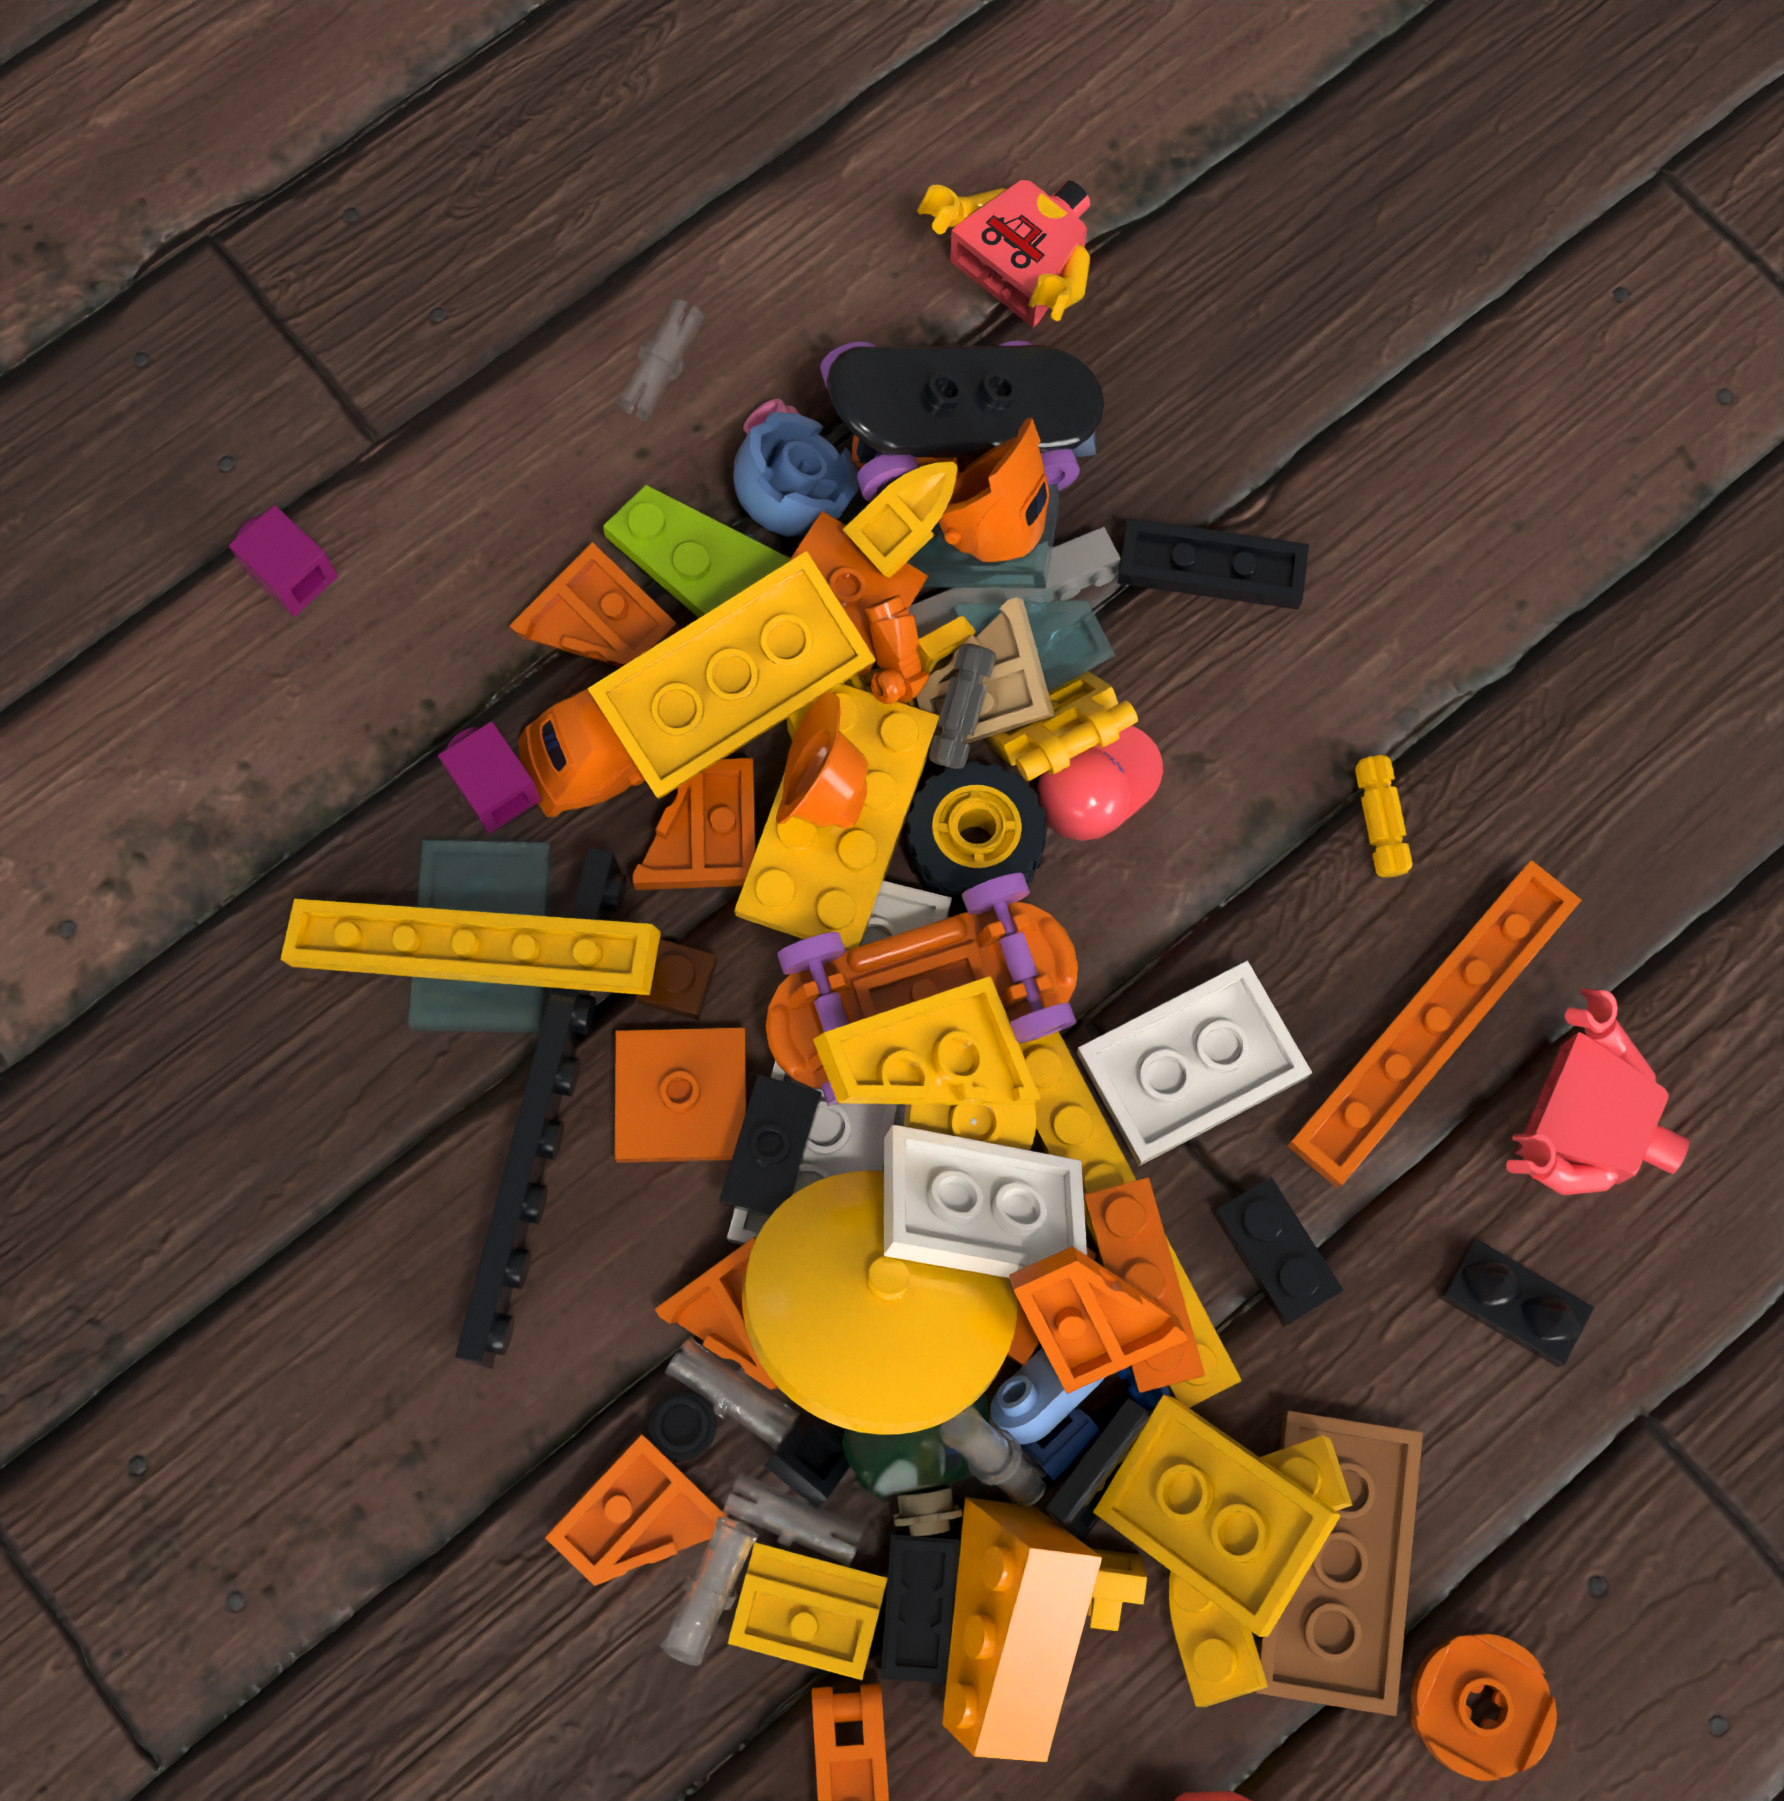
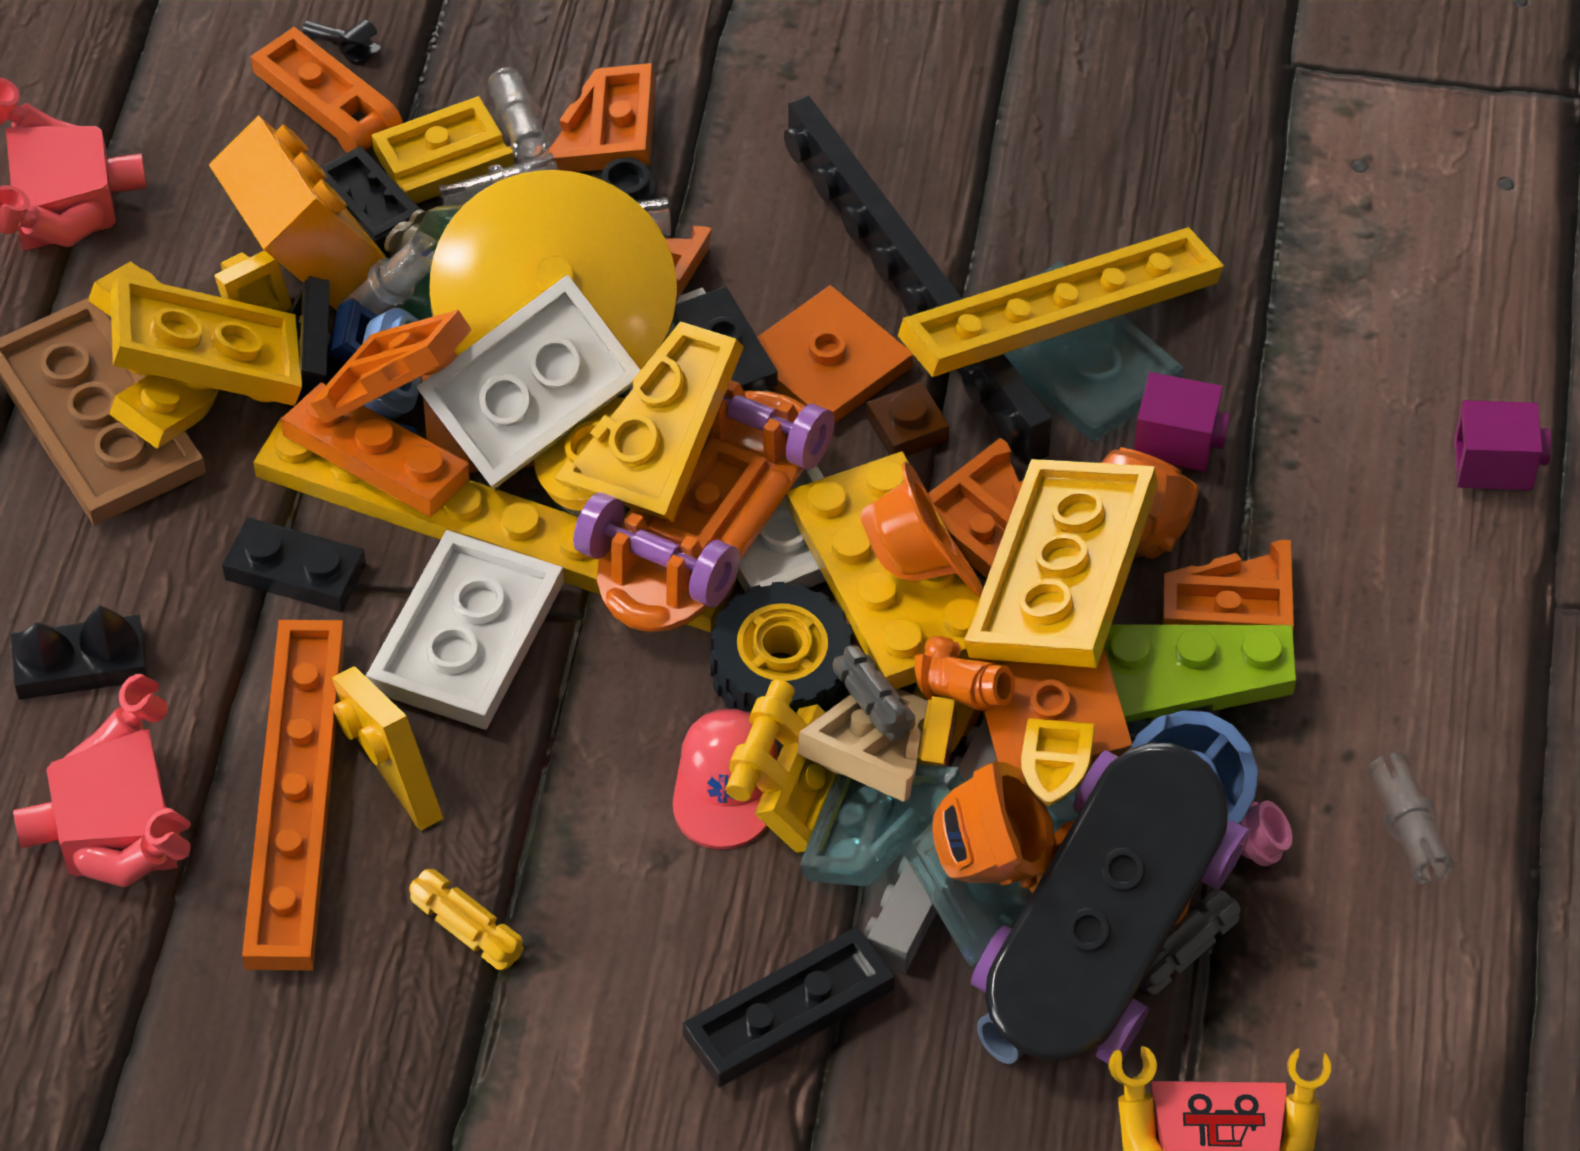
camera: 140 degrees right, 20 degrees down
(1352, 977) = (388, 742): none -> yellow wing

